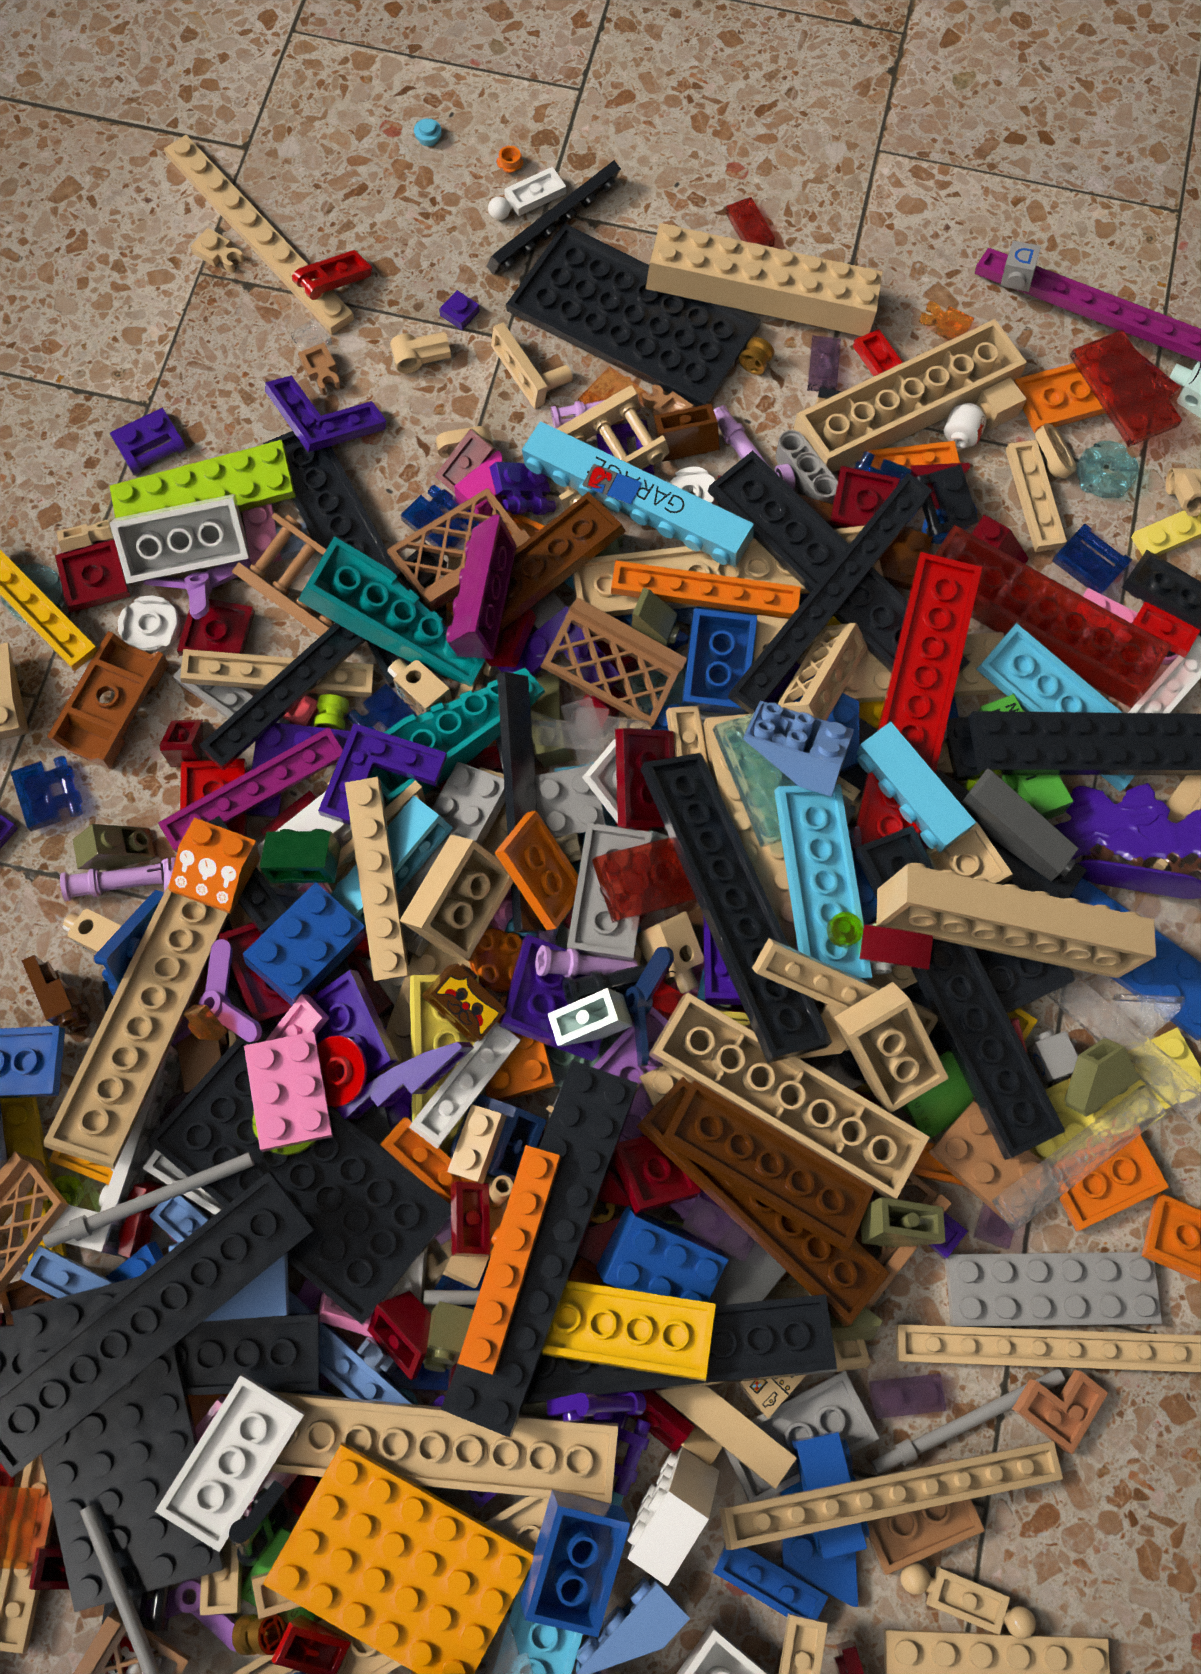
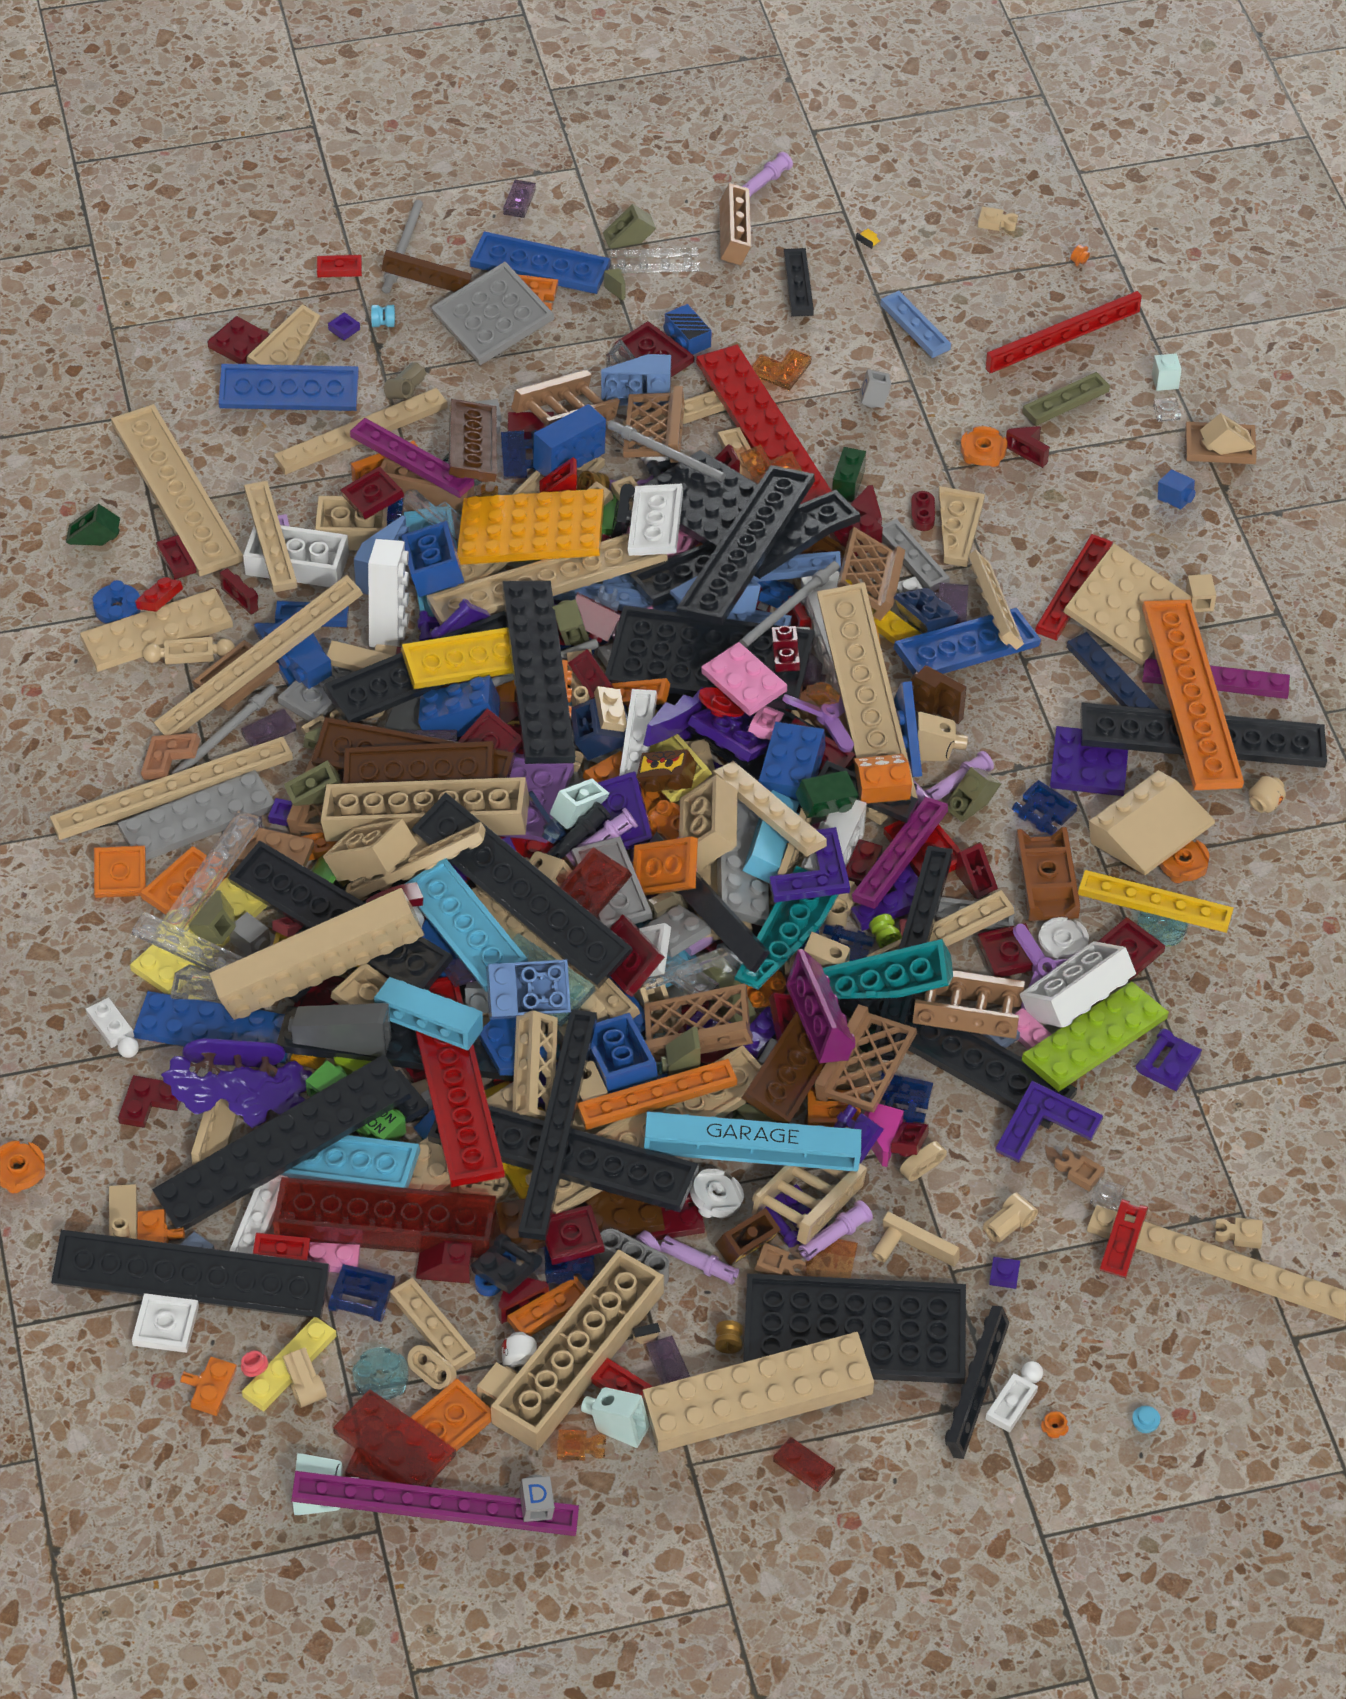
camera: 155 degrees right, 20 degrees down
(83, 535) = (1160, 968): tan plate -> none
(204, 1122) = (785, 648): none -> dark red slope
(509, 1260) = (552, 648): orange plate -> none
(612, 484) = (773, 1127): sticker -> none
(844, 929) = (435, 896): clear neon green tile -> none
(903, 320) = (618, 1415): none -> light aqua torso

